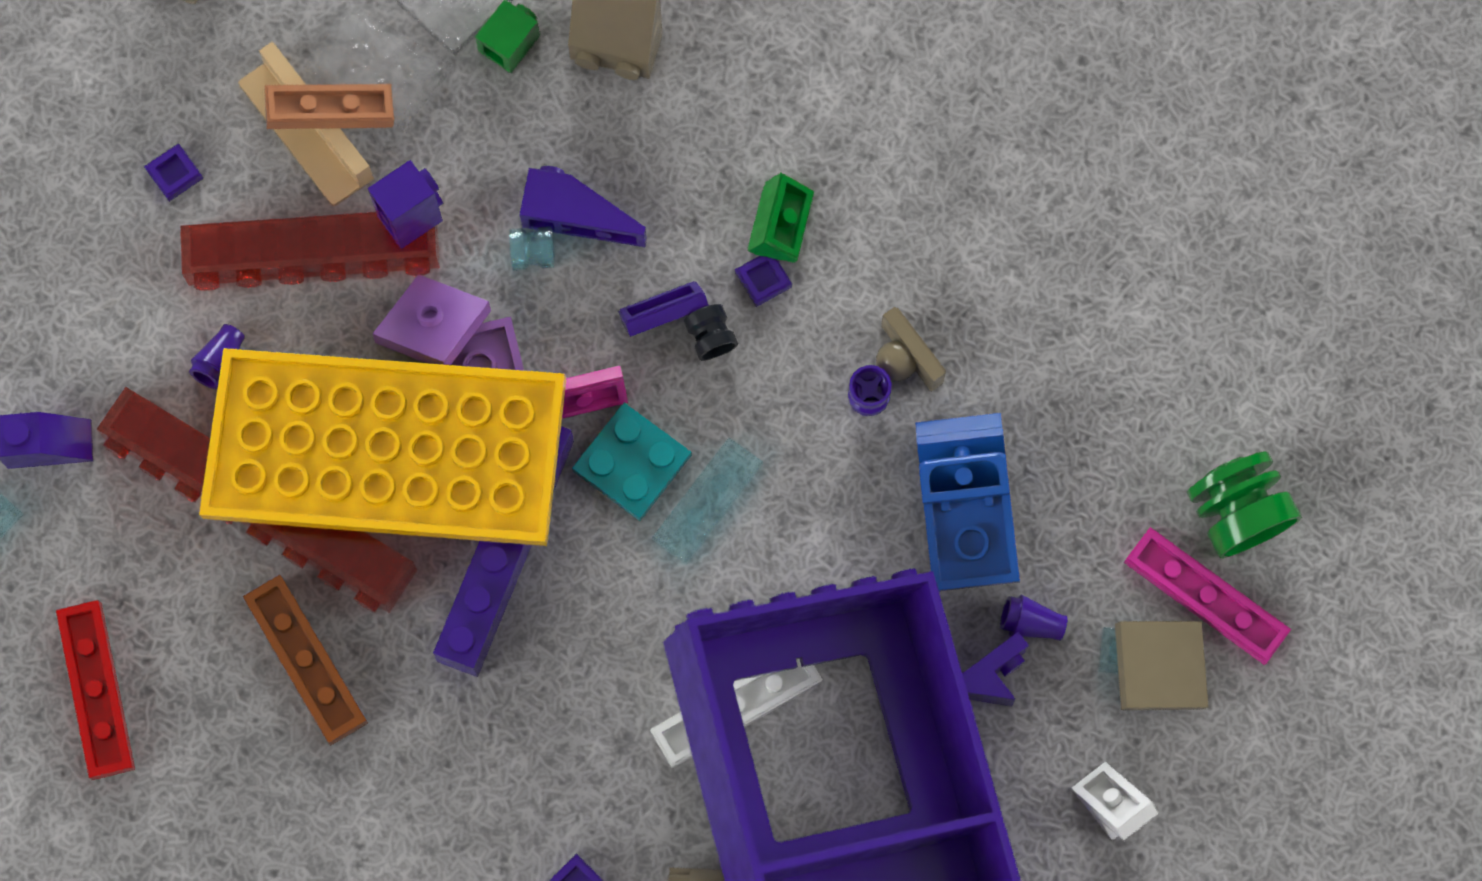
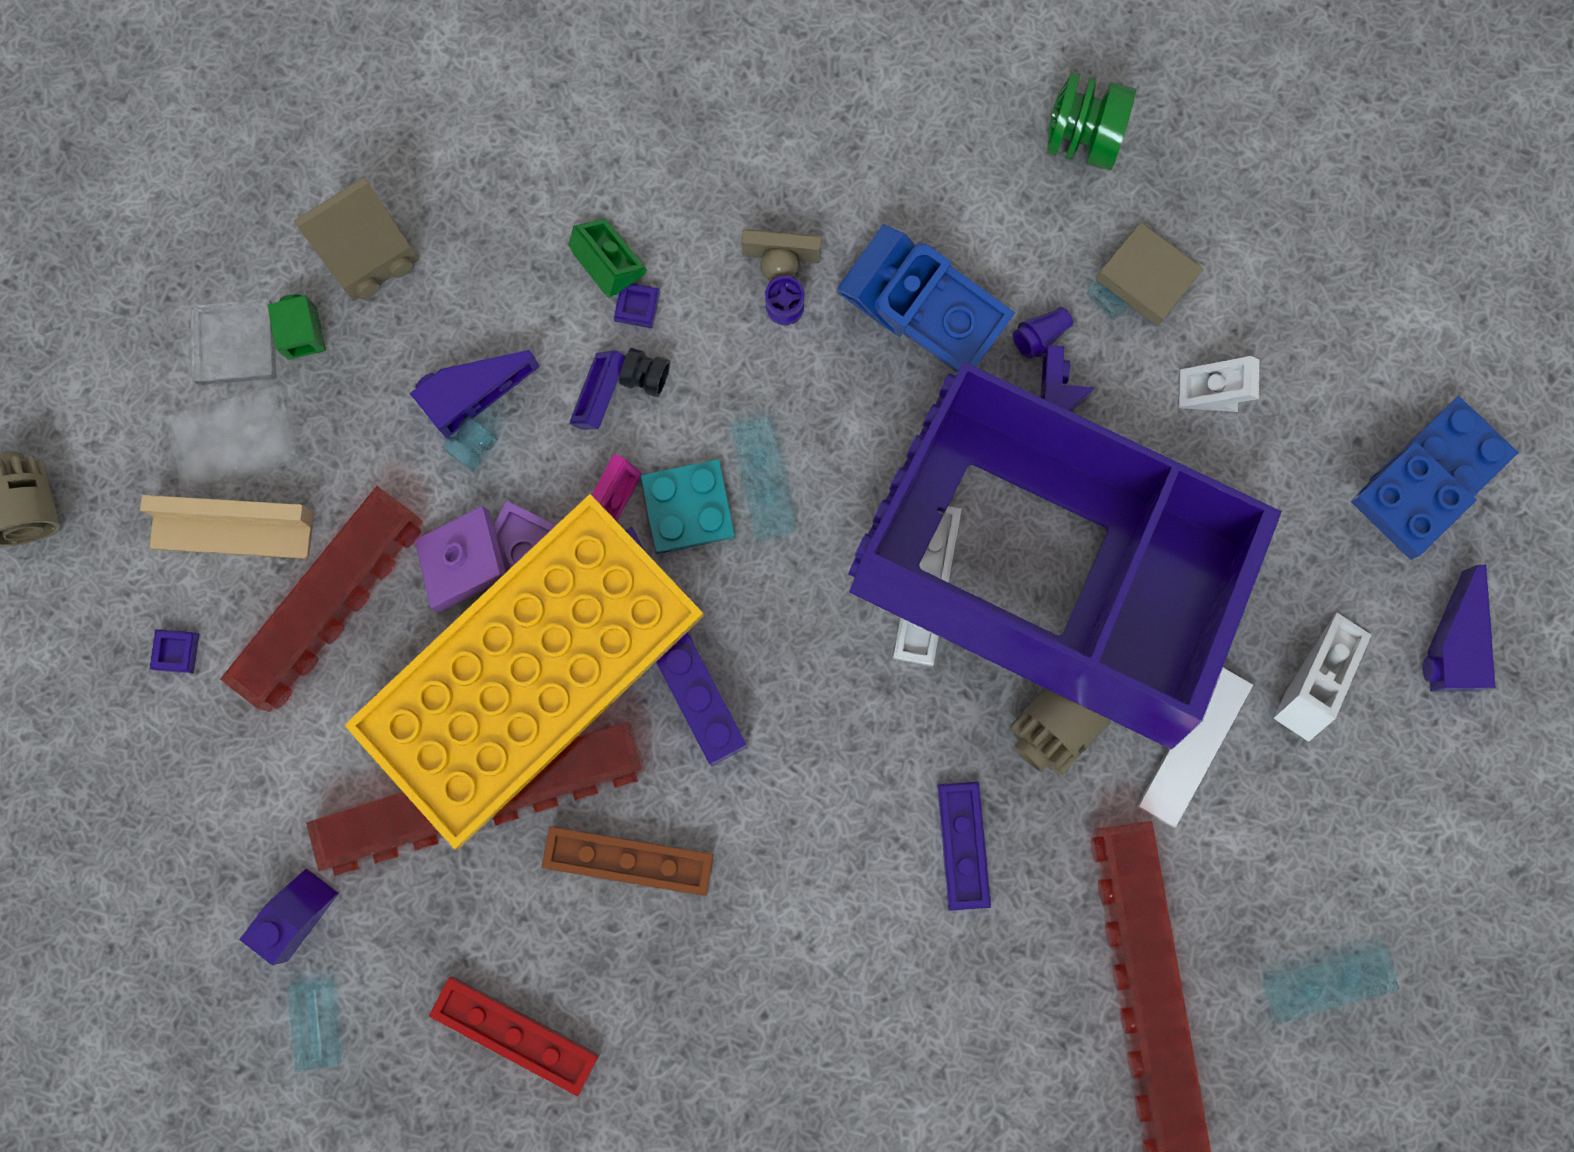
camera: 45 degrees left, 5 degrees up
(208, 360) = (341, 743): dark purple cone -> none
(328, 106) = (229, 495): nougat tile -> none
(407, 203) = (357, 498): dark purple brick -> none
(1207, 596) = (1124, 204): dark pink tile -> none

